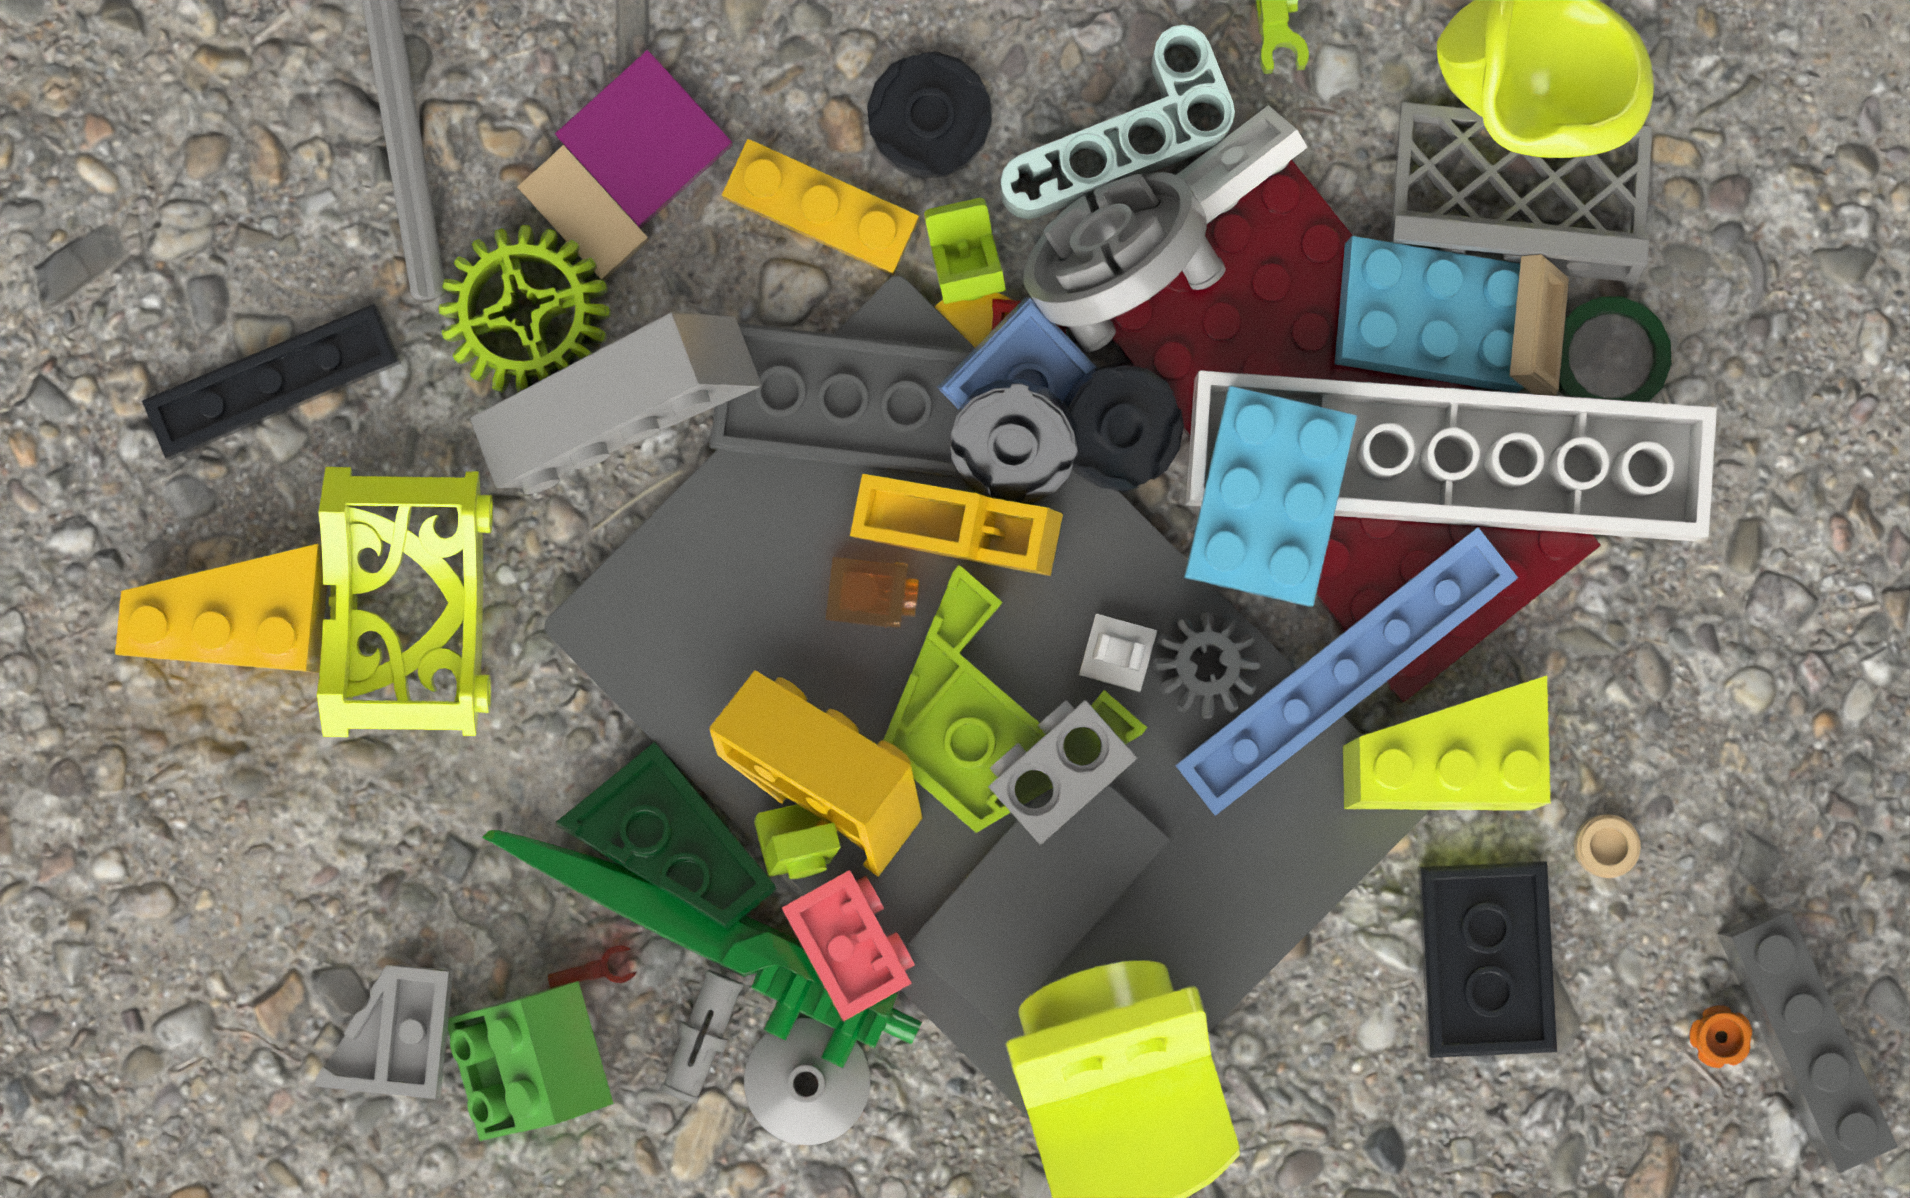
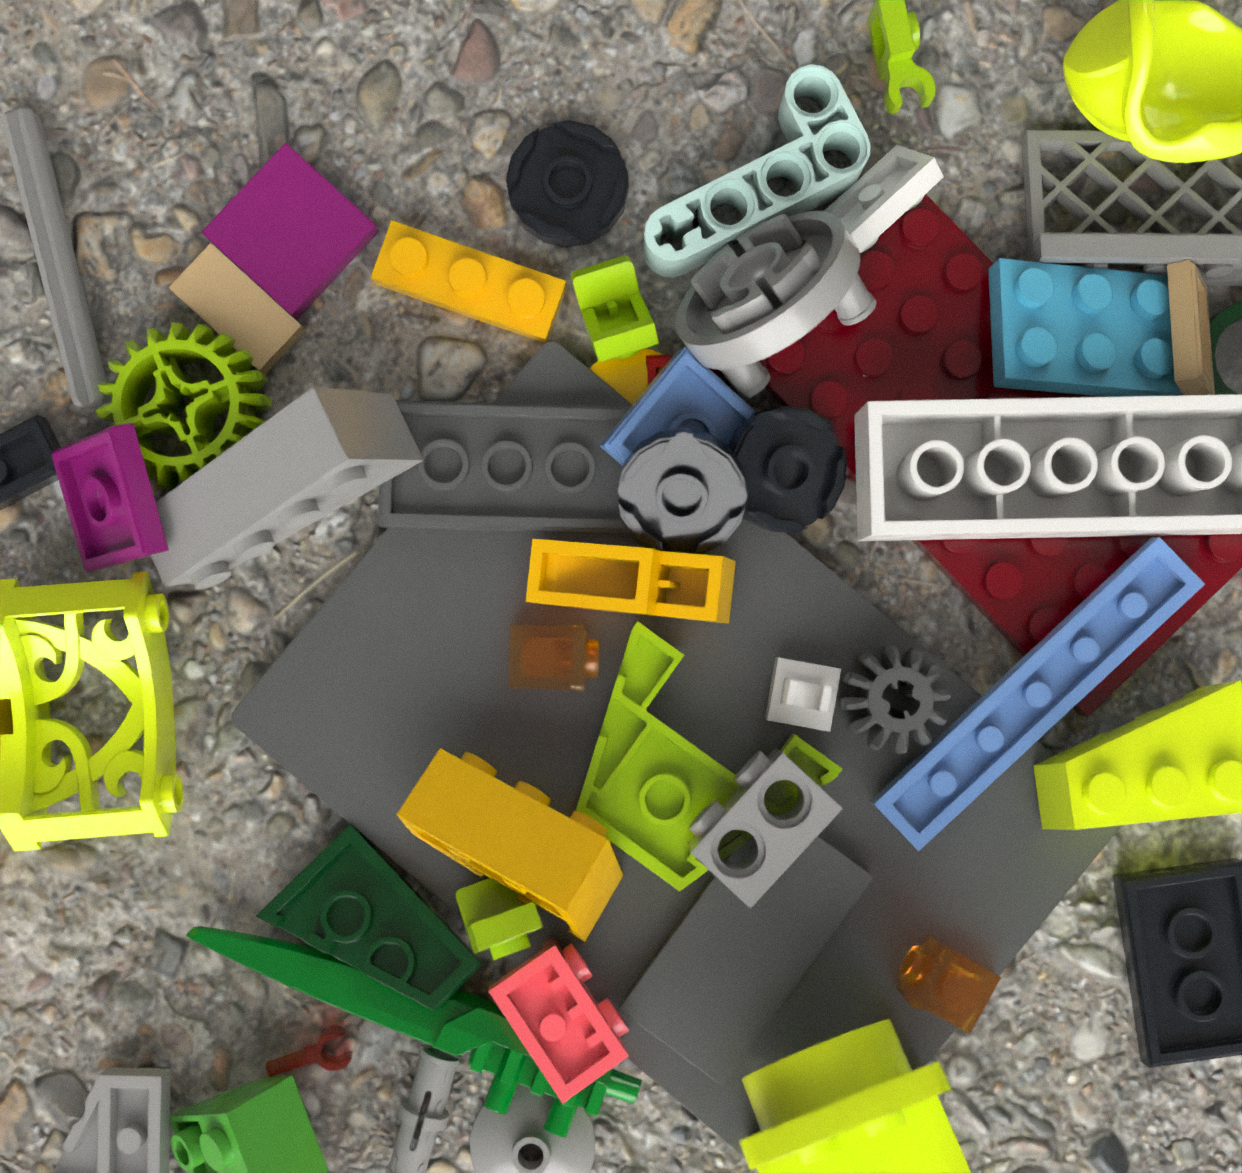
camera: 15 degrees left, 0 degrees up
(447, 397) = (109, 498): none -> magenta tile
(1232, 950) = (946, 983): none -> clear orange bracket
(1270, 496) = (957, 523): medium azure plate -> none

